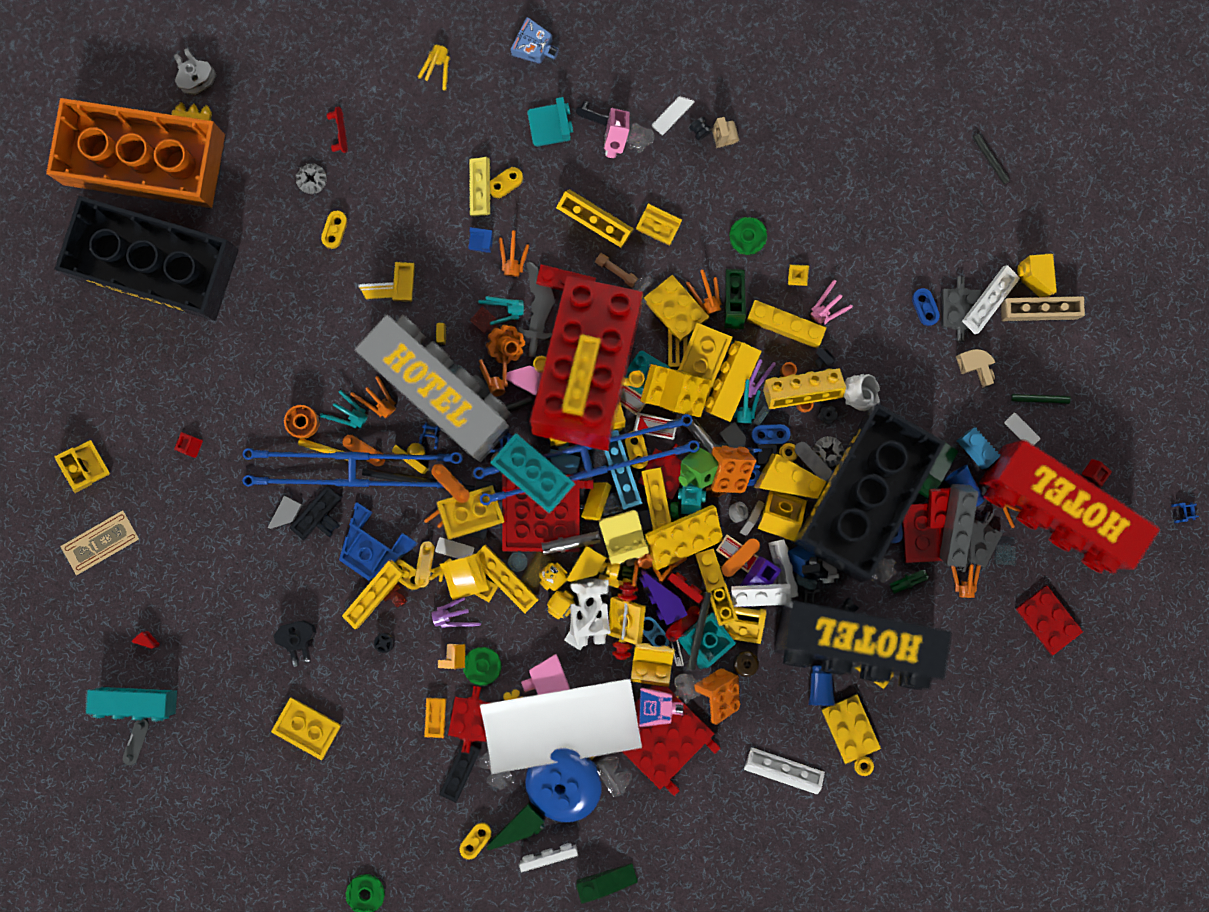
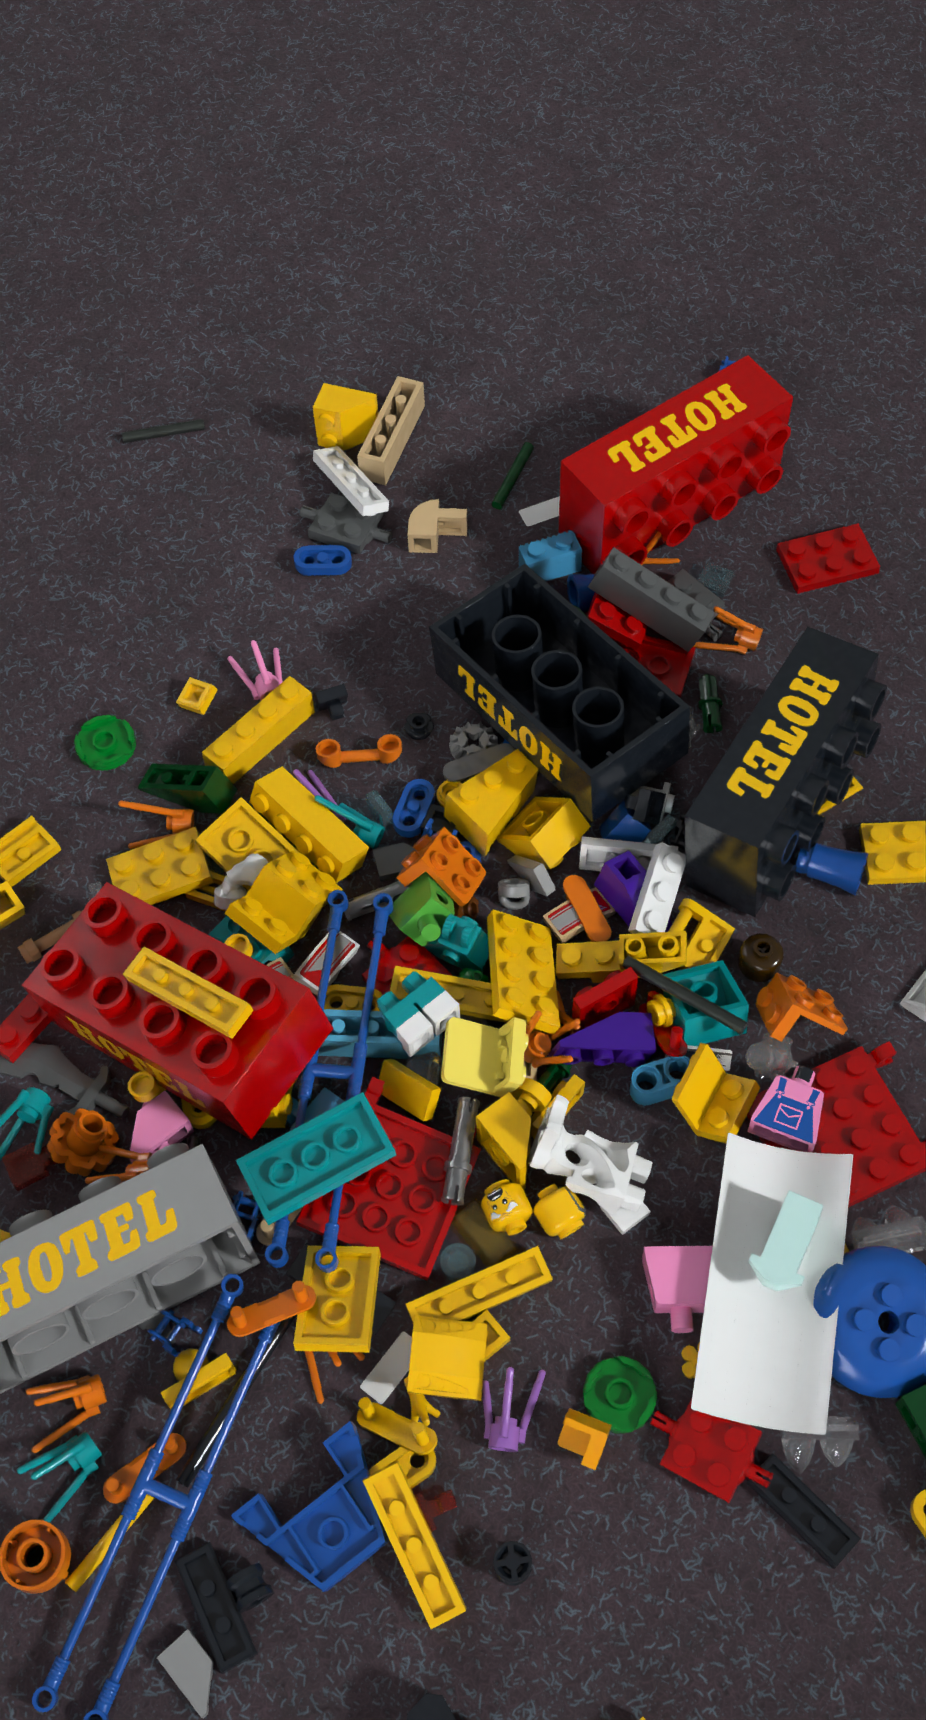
camera: 70 degrees left, 25 degrees down
(435, 717) = (687, 1517): light orange plate -> none
(577, 728) = (787, 1243): none -> light aqua piece
(626, 488) = (418, 1014): none -> hips
(626, 620) = (626, 1109): yellow plate -> none
(674, 357) = (241, 874): none -> white arm
(690, 620) = (661, 1010): none -> yellow plate
(804, 388) = (365, 735): yellow brick -> none
(861, 392) = (404, 669): white hair -> none

